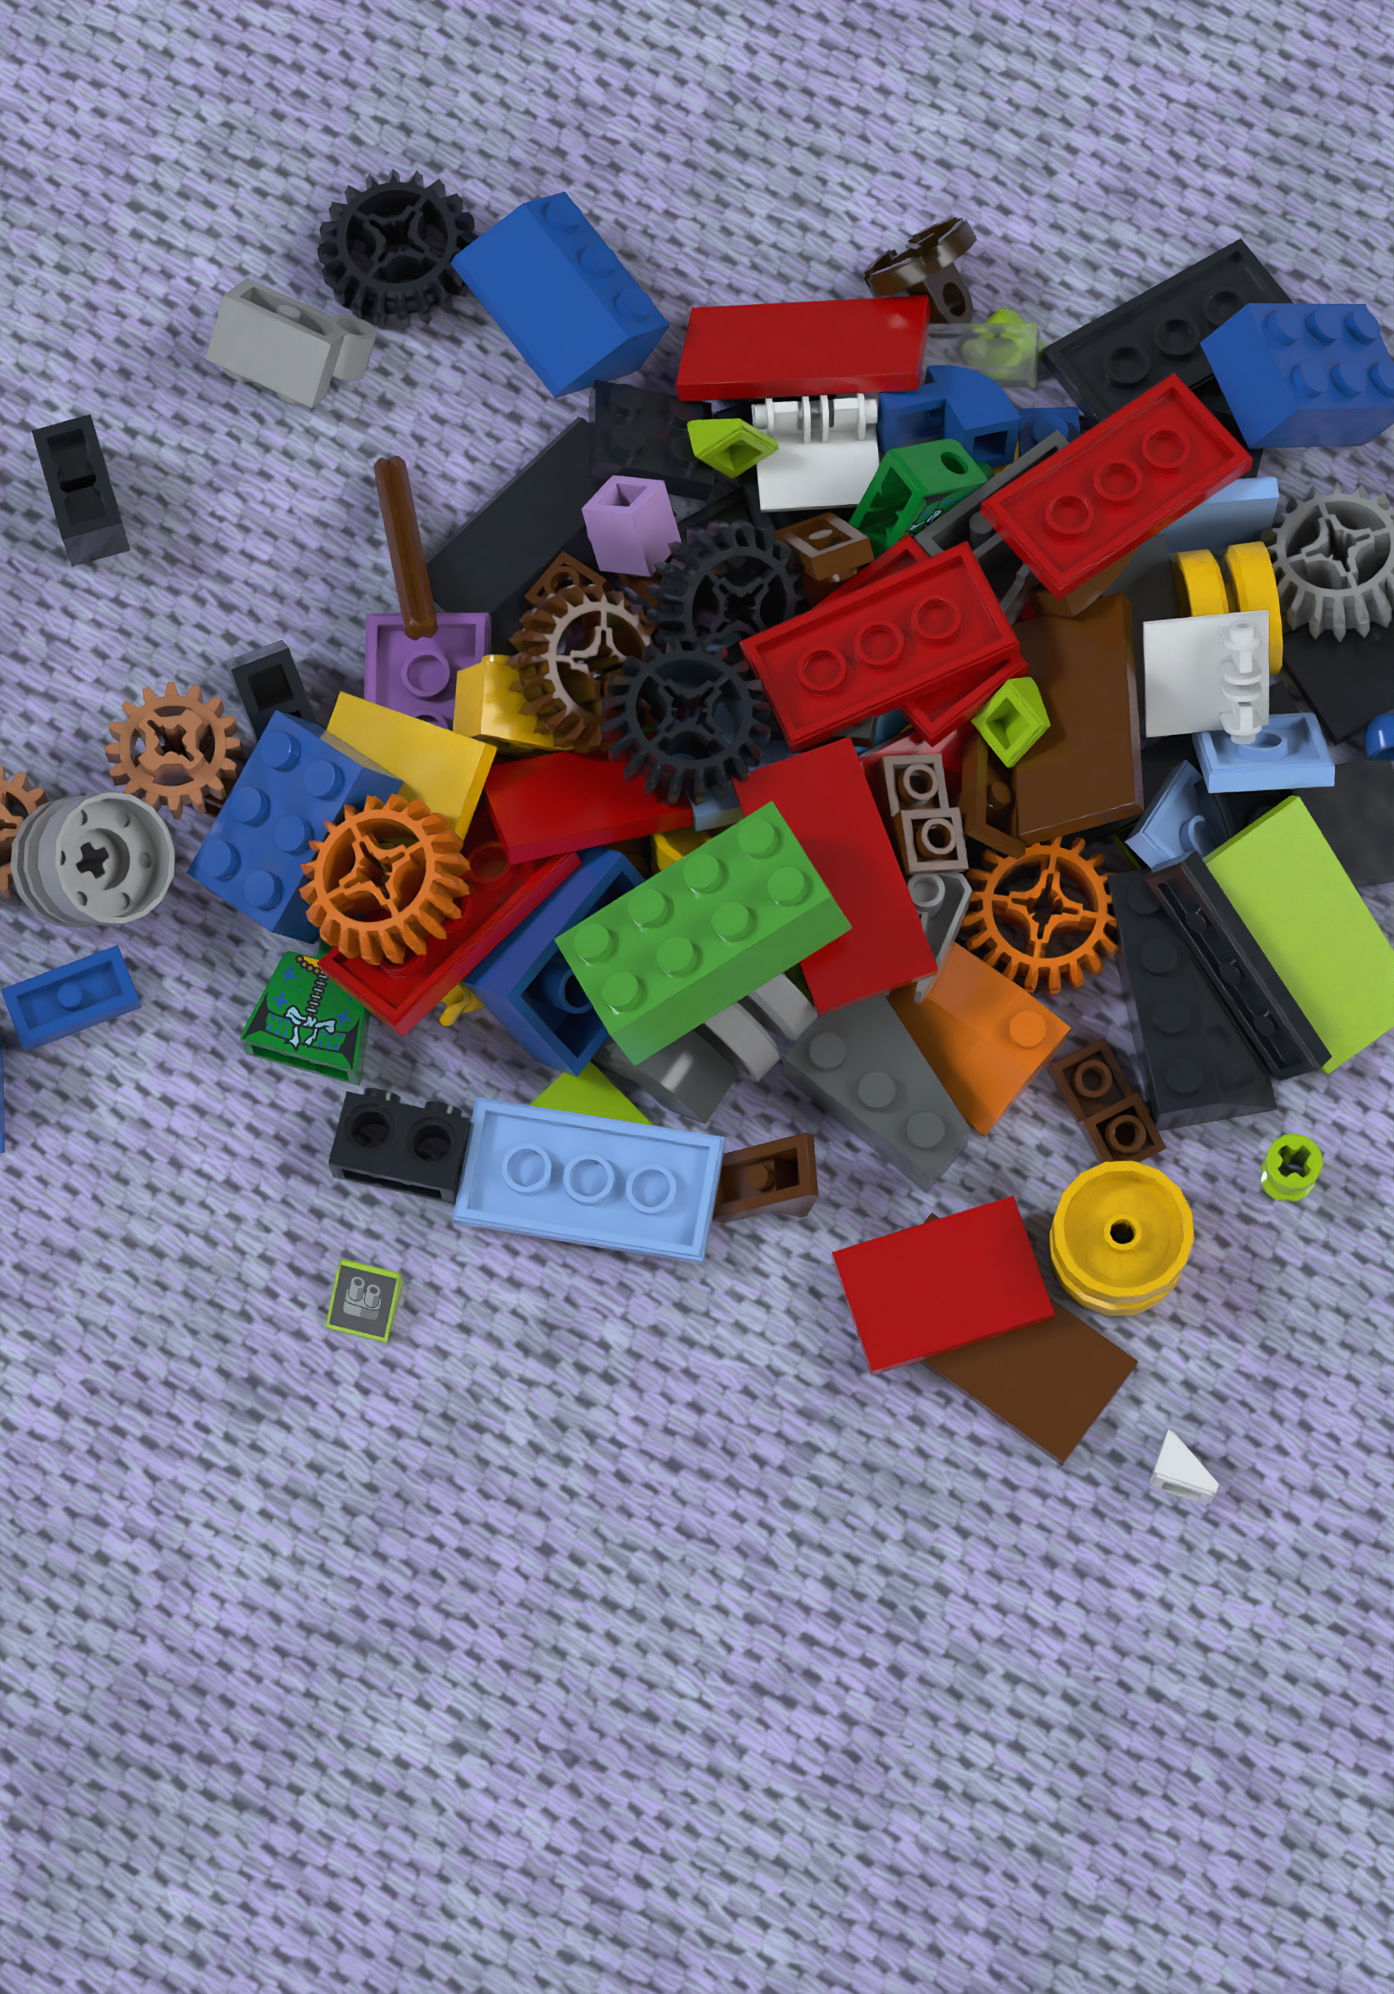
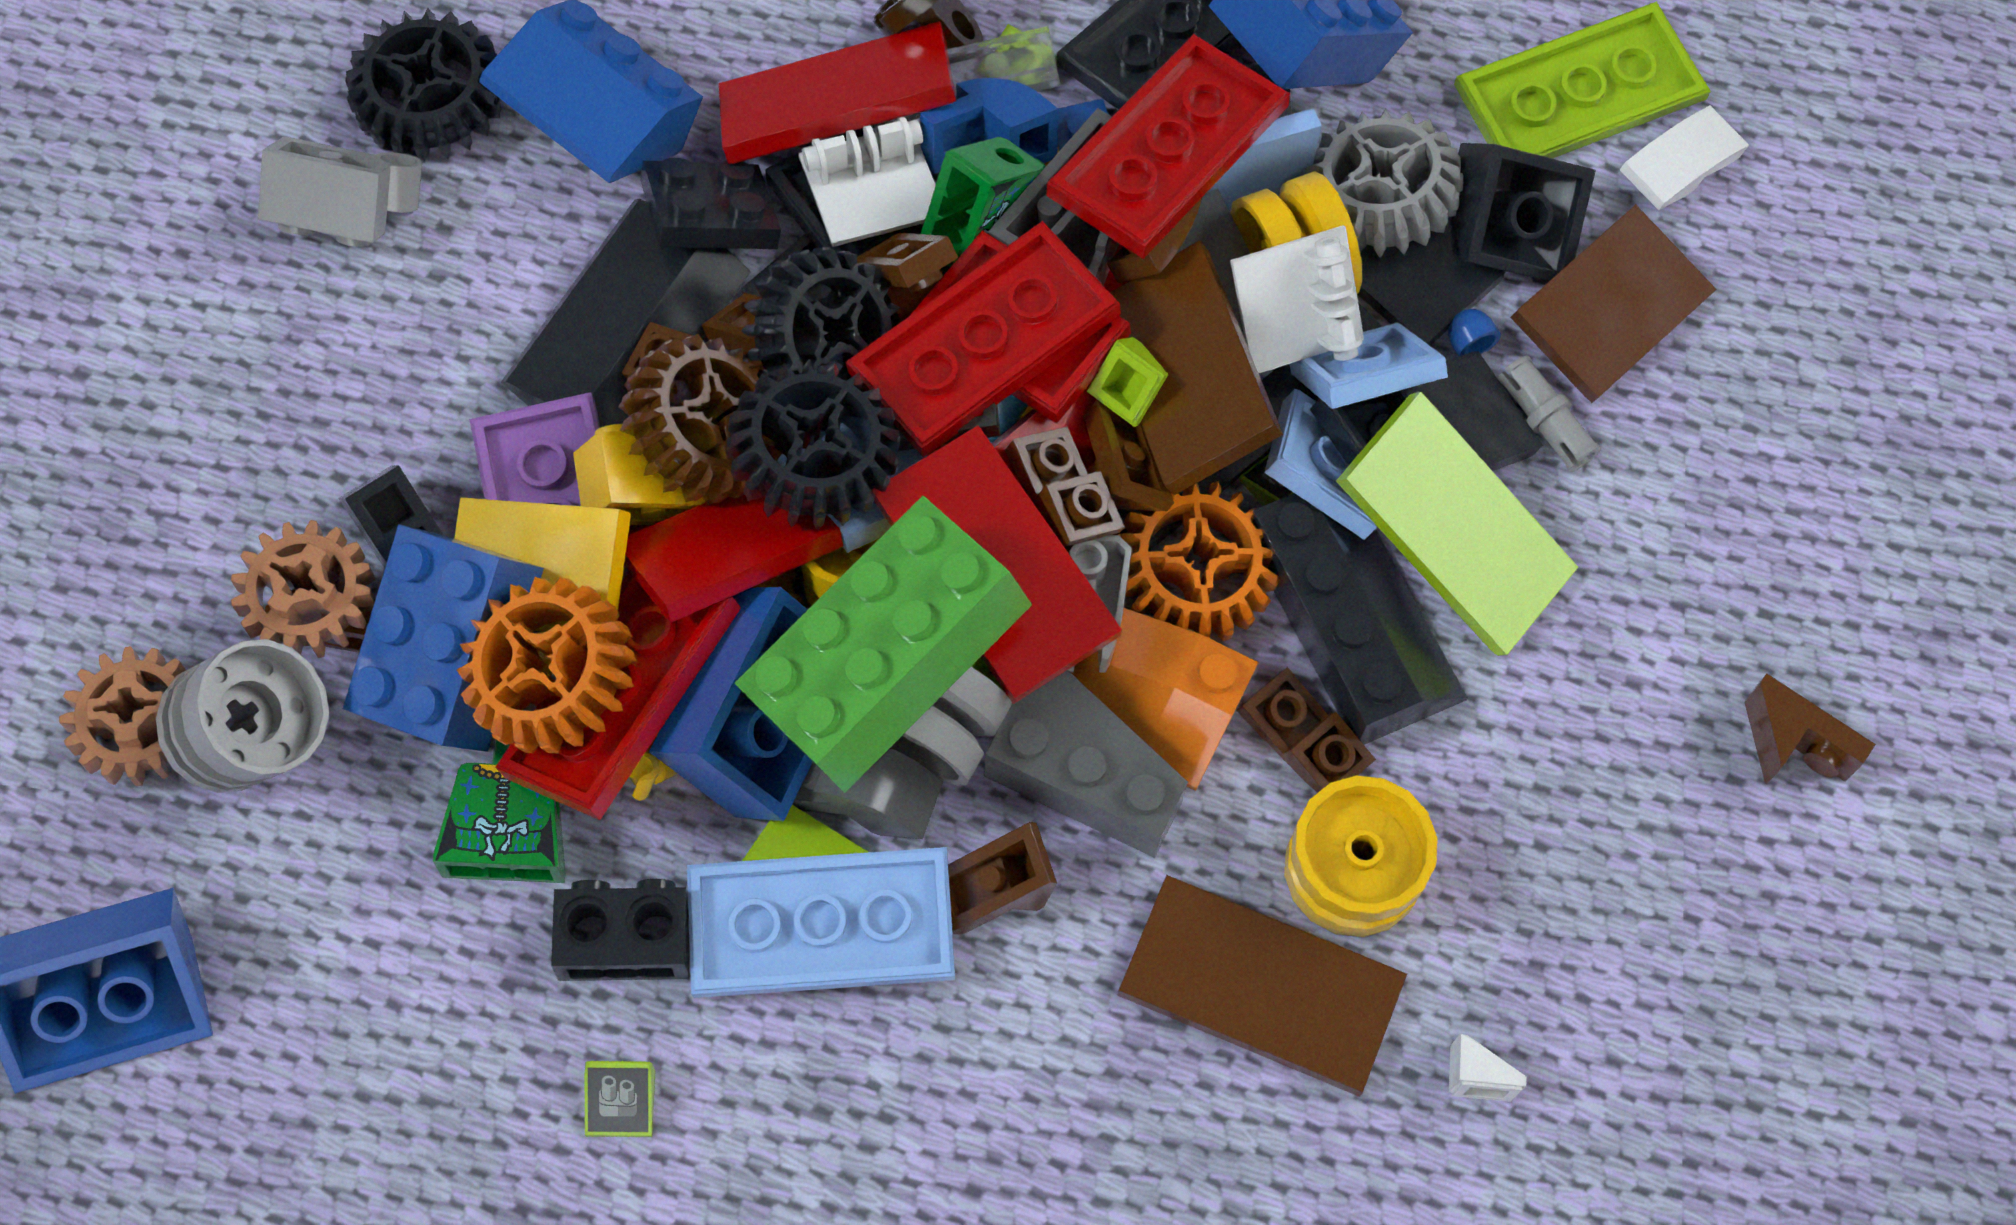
camera: 20 degrees left, 5 degrees down
(71, 998) = (249, 862): blue plate -> none
(80, 490) = (158, 365): black brick -> none
(405, 548) = (495, 352): reddish brown axle -> none
(630, 525) = (710, 282): lavender brick -> none
(729, 444) = (788, 188): lime slope -> none
(942, 1285) = (1197, 944): red tile -> none
(1237, 966) = (1401, 567): black tile -> none
(1287, 1150) = (1512, 734): lime bush -> none

